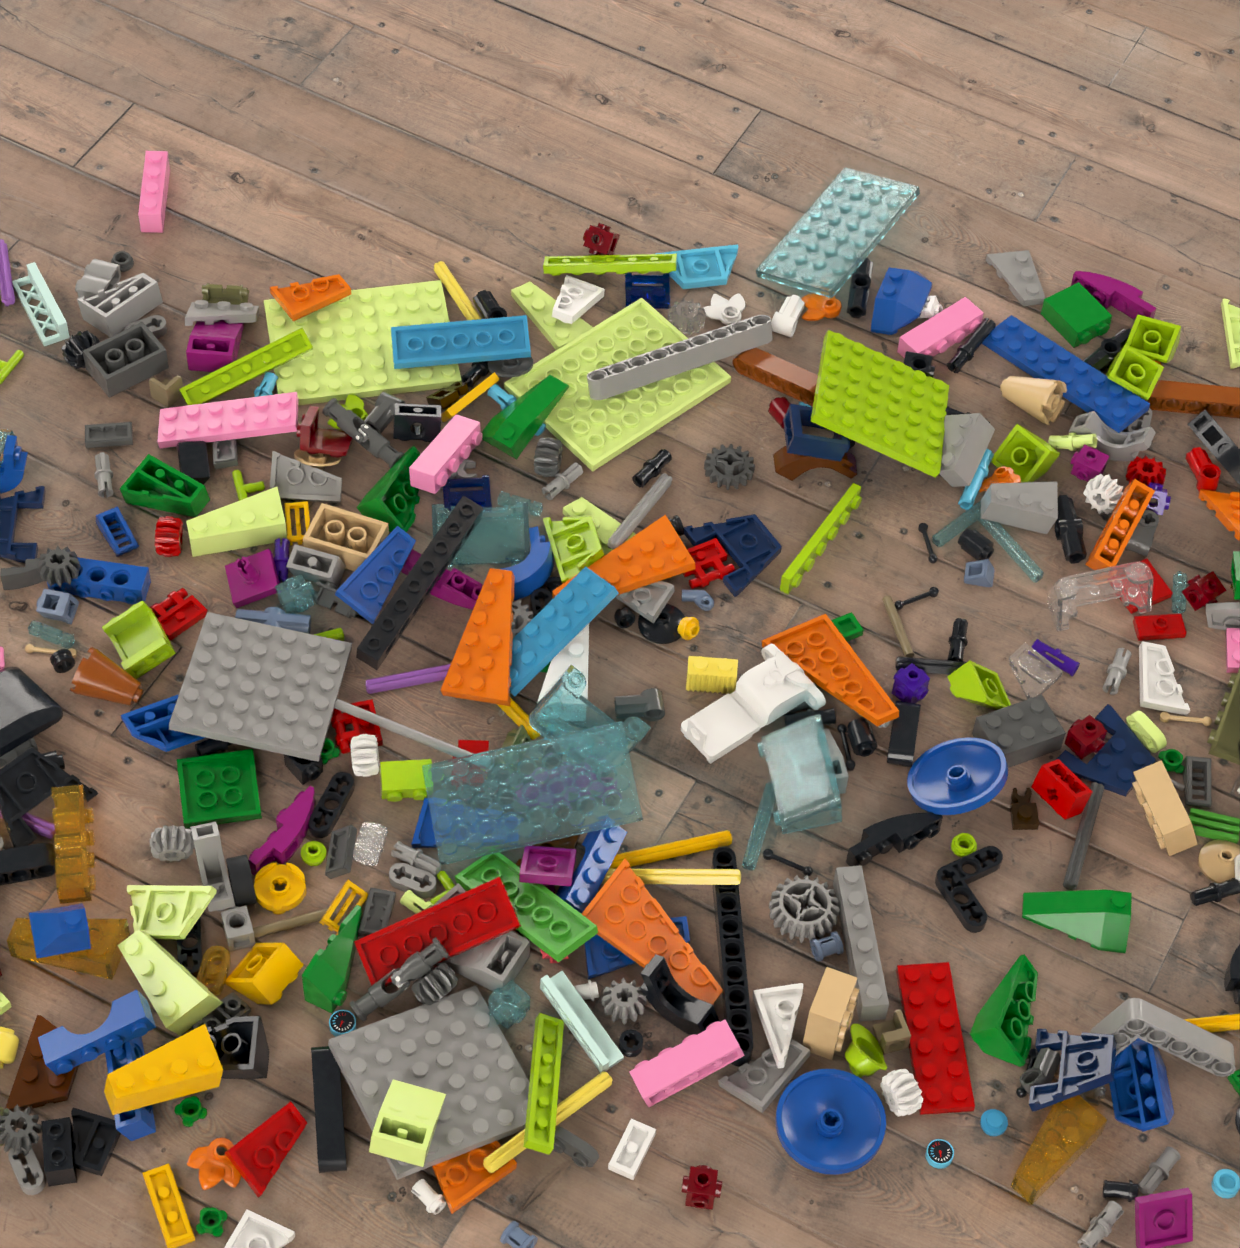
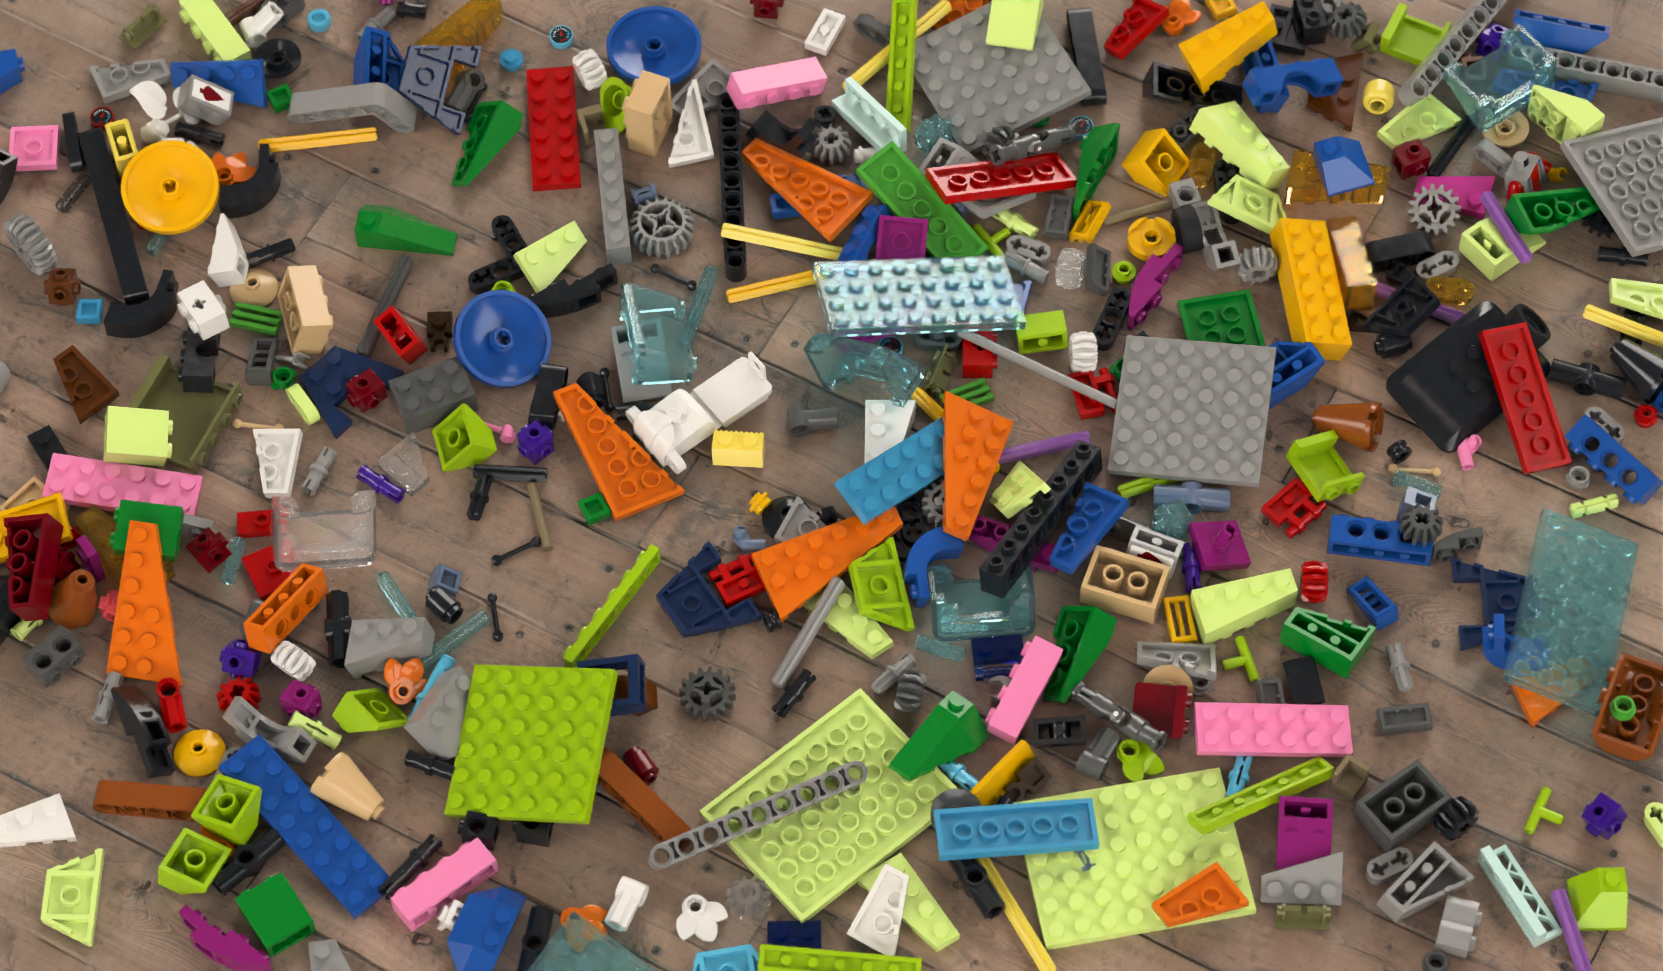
camera: 175 degrees left, 5 degrees up
(120, 814) = (1311, 286): none -> yellow brick
(440, 614) = (1017, 490): none -> yellowish green wing
(484, 725) = (971, 391): none -> bright green tile
(919, 879) = (550, 255): none -> yellowish green wing
(939, 705) = (506, 432): none -> bright pink hand
(1171, 443) = (199, 762): none -> yellow dish

